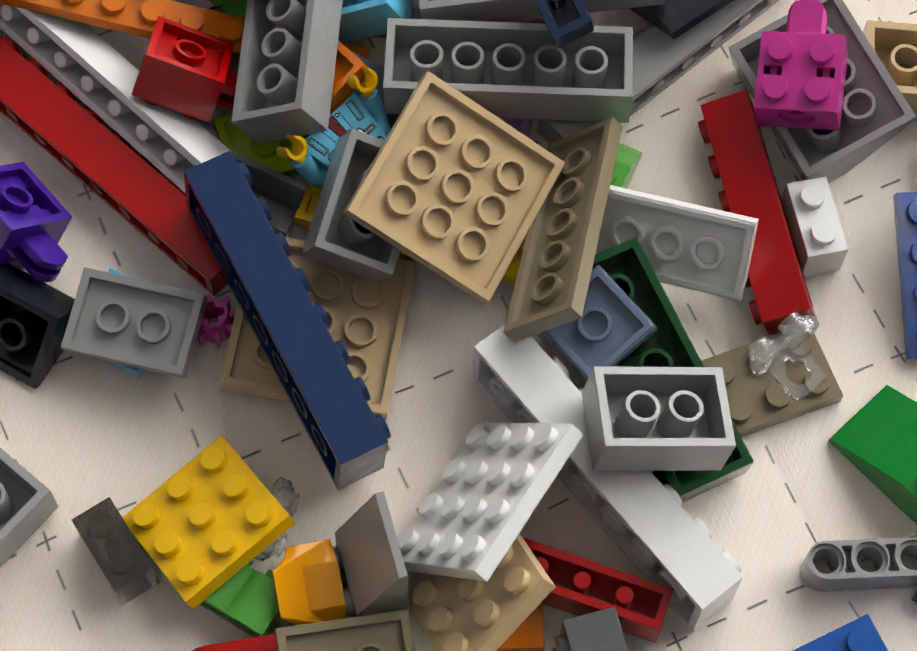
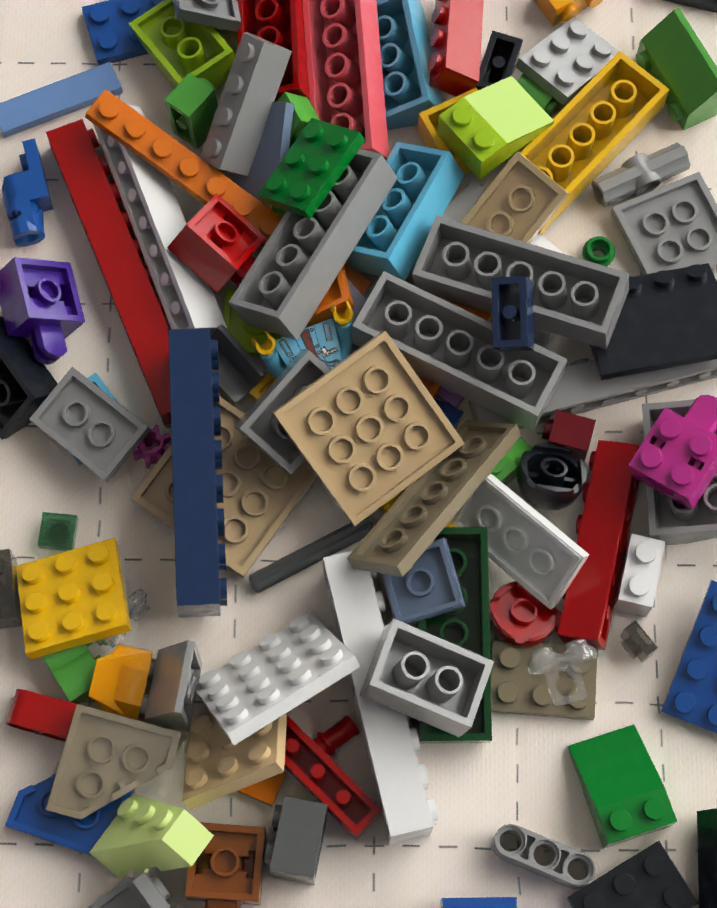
camera: 25 degrees right, 5 degrees up
(151, 459) = (58, 531): none -> clear green plate
(448, 361) = (309, 555): none -> dark grey axle
(579, 534) = (336, 735): none -> red pin
(664, 116) = (571, 432): none -> dark red brick
(670, 163) = (551, 476): none -> black cylinder
(714, 322) = (520, 616): none -> red tile
(848, 296) = (637, 642): none -> clear smoke plate

